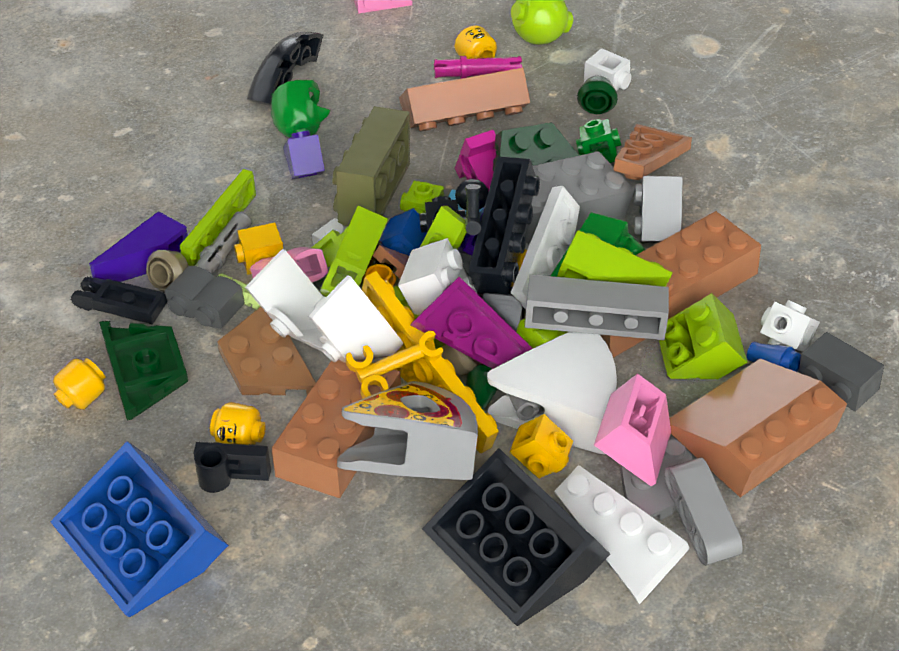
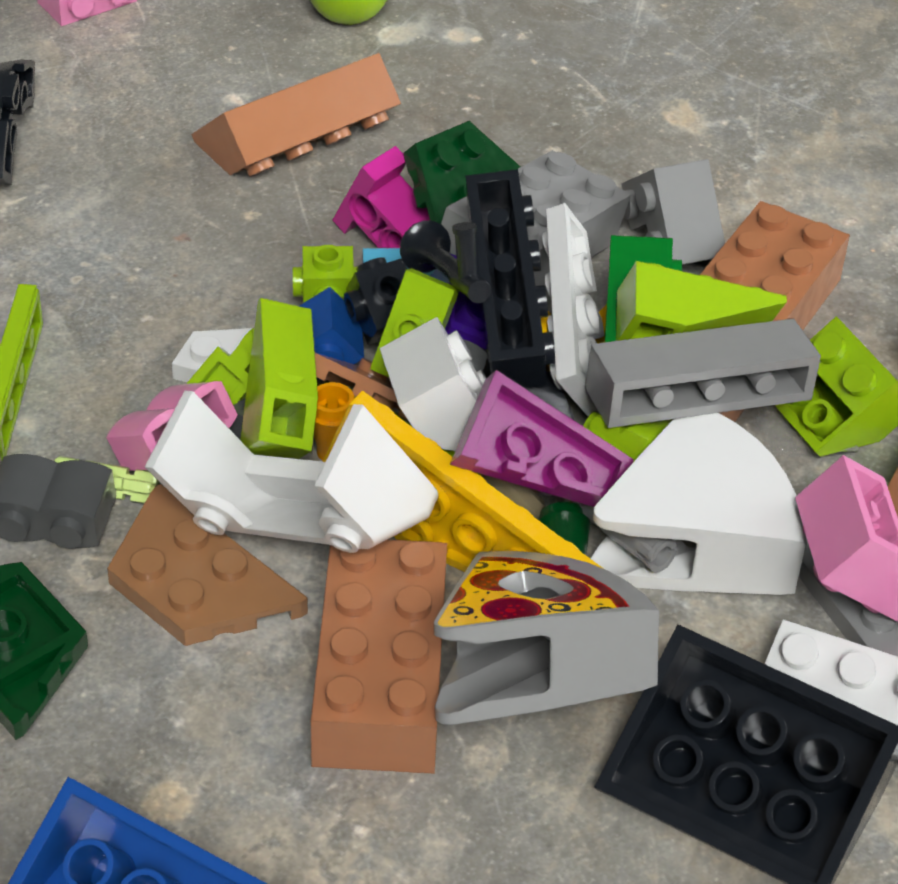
camera: 25 degrees left, 0 degrees up
(221, 462) = (235, 763): black plate -> none
(237, 424) = (219, 700): yellow head -> none
(239, 221) = (31, 429): light grey pin -> none
(257, 244) = (99, 399): yellow brick -> none
(295, 110) = (55, 180): green piece -> none
(303, 155) = (98, 245): slope -> none
(369, 373) = (422, 555): yellow bar -> none
(373, 164) = (226, 238): olive brick -> none
(474, 67) = (273, 72): dark pink pin -> none
(475, 43) = (271, 40): yellow head -> none
(541, 446) = (716, 602): yellow brick -> none
(597, 95) = (487, 76): dark green cone -> none
(598, 136) = (530, 134): green brick -> none
(609, 66) = (483, 41): white brick -> none
(649, 150) = (609, 138): nougat wing -> none

